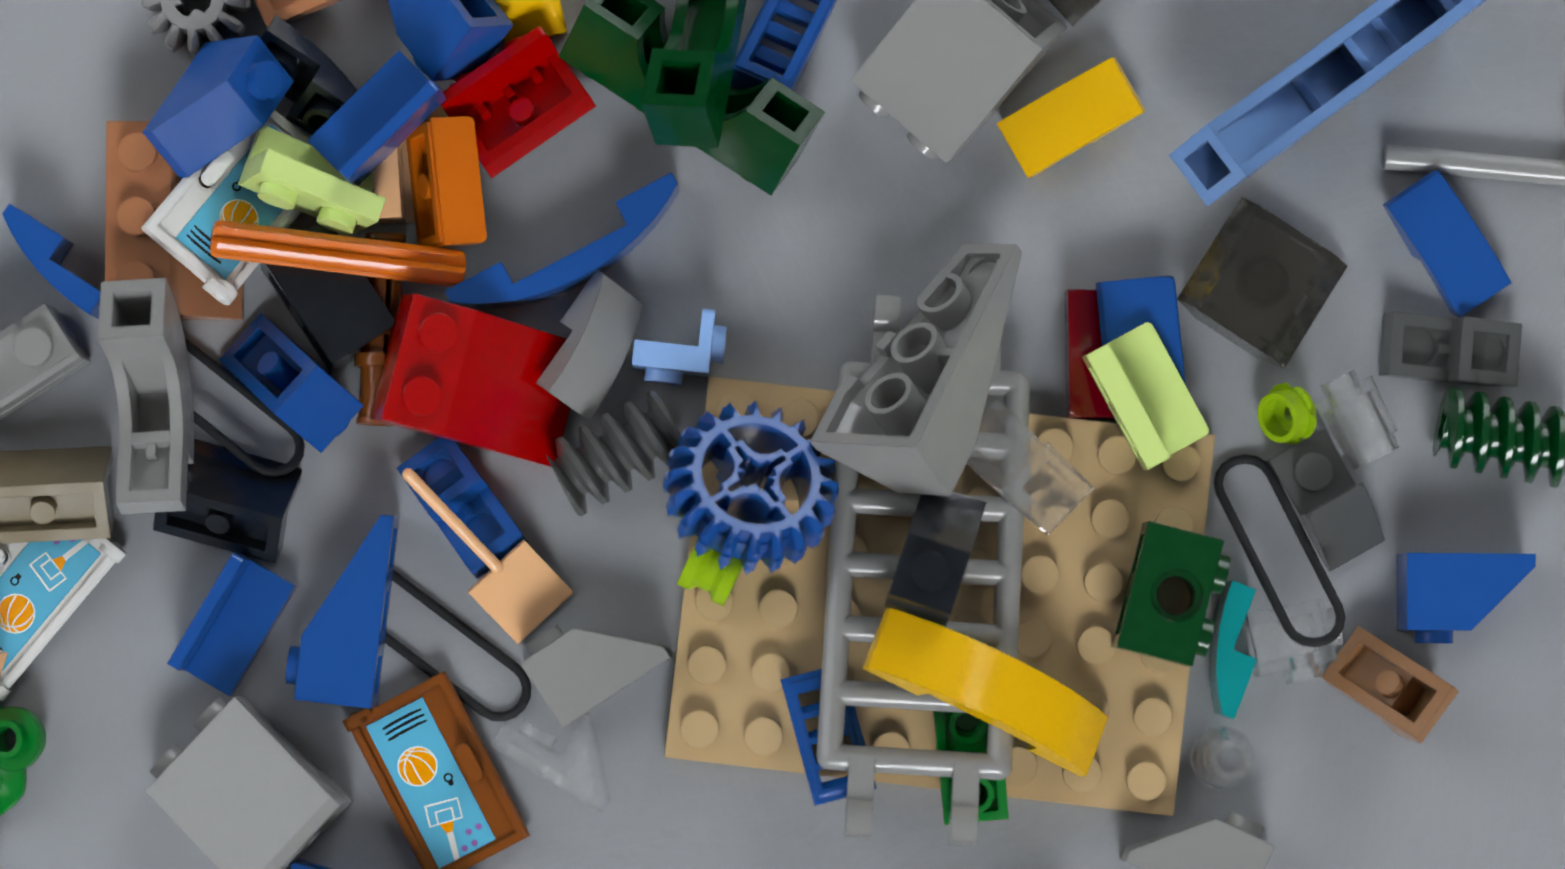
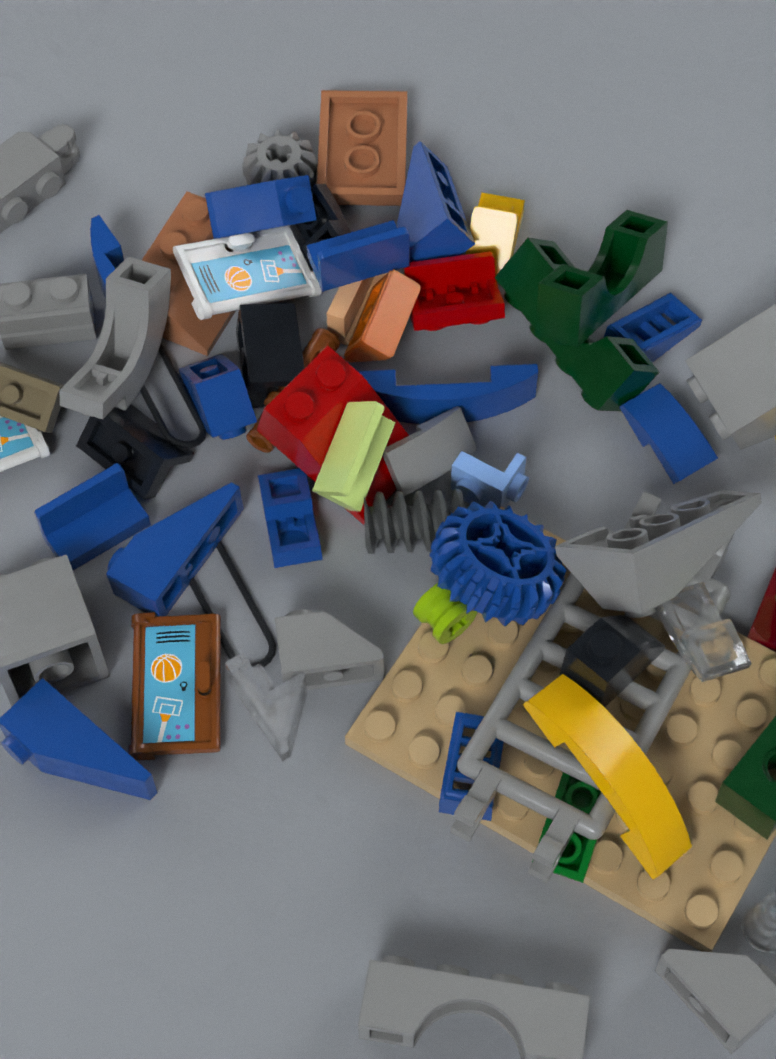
camera: 30 degrees right, 25 degrees down
(299, 178) = (293, 274): yellowish green bracket -> none
(337, 253) = (286, 315): orange axle -> none
(512, 416) = (354, 454): none -> yellowish green panel
(516, 589) = (299, 580): light nougat piece -> none
(866, 178) = (670, 432): none -> blue slope

